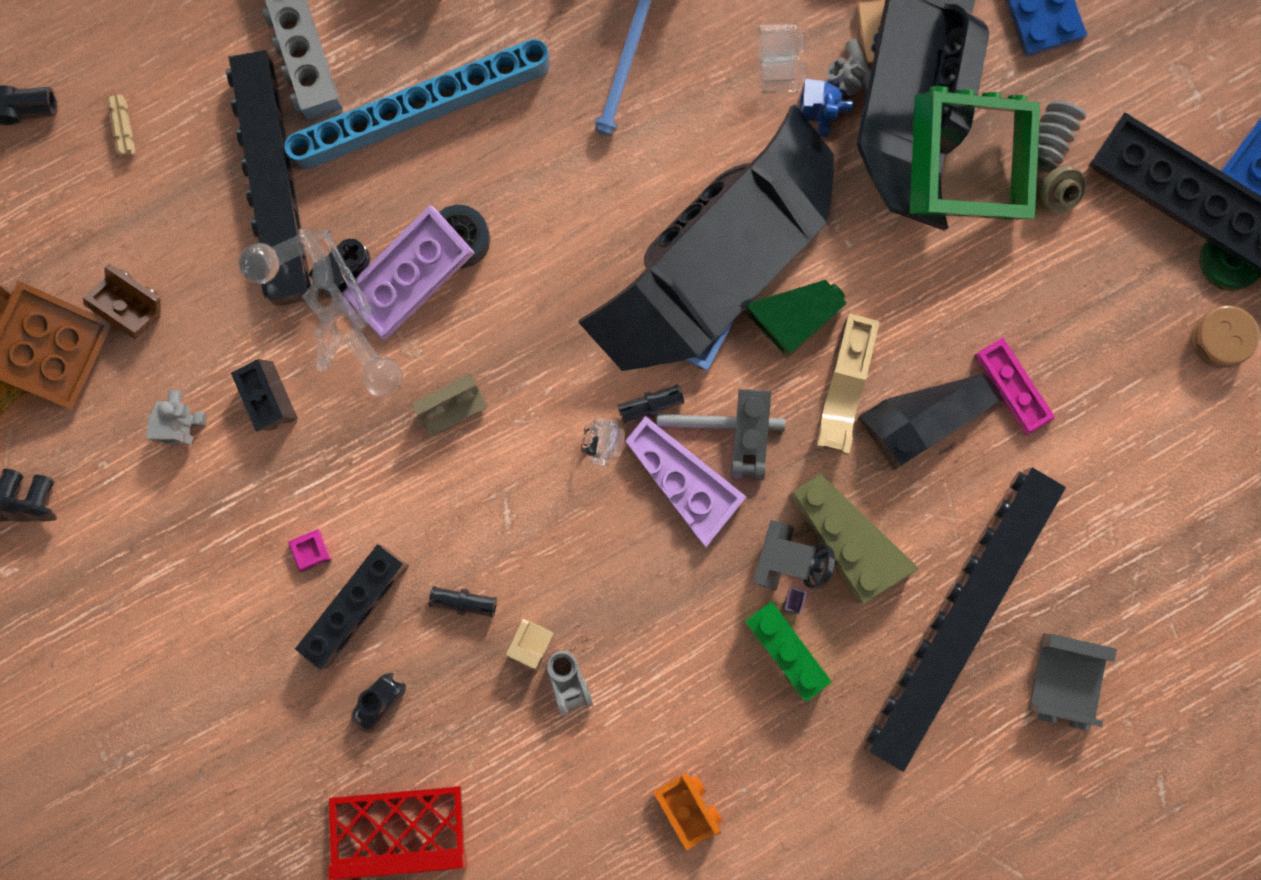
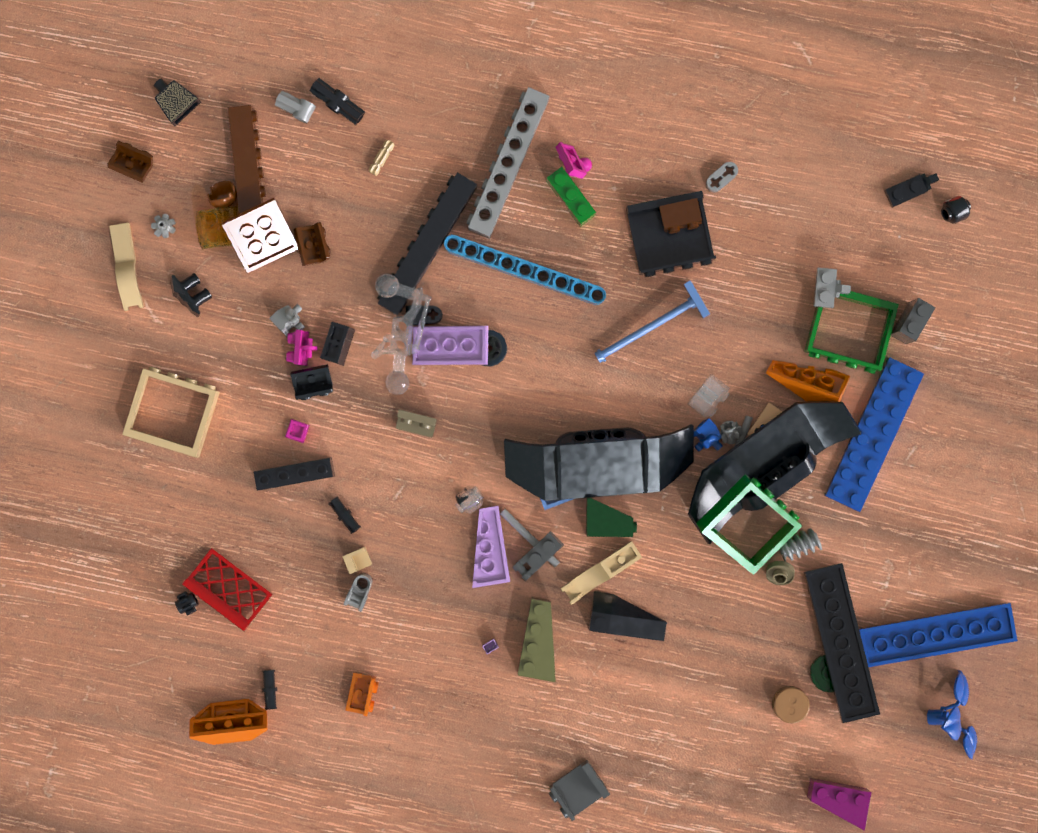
camera: 35 degrees right, 5 degrees up
(180, 645) = (189, 383): none -> tan window
(225, 441) = (303, 348): none -> dark pink hips
(273, 471) = (312, 382): none -> black bracket
(377, 702) = (268, 526): black piece -> none
(650, 403) = (506, 502): black pin -> none
(787, 651) = (466, 665): green arch -> none
(792, 558) = (502, 625): dark grey piece -> none
(964, 617) = (557, 721): black brick -> none
(1014, 386) = (676, 640): dark pink tile -> none

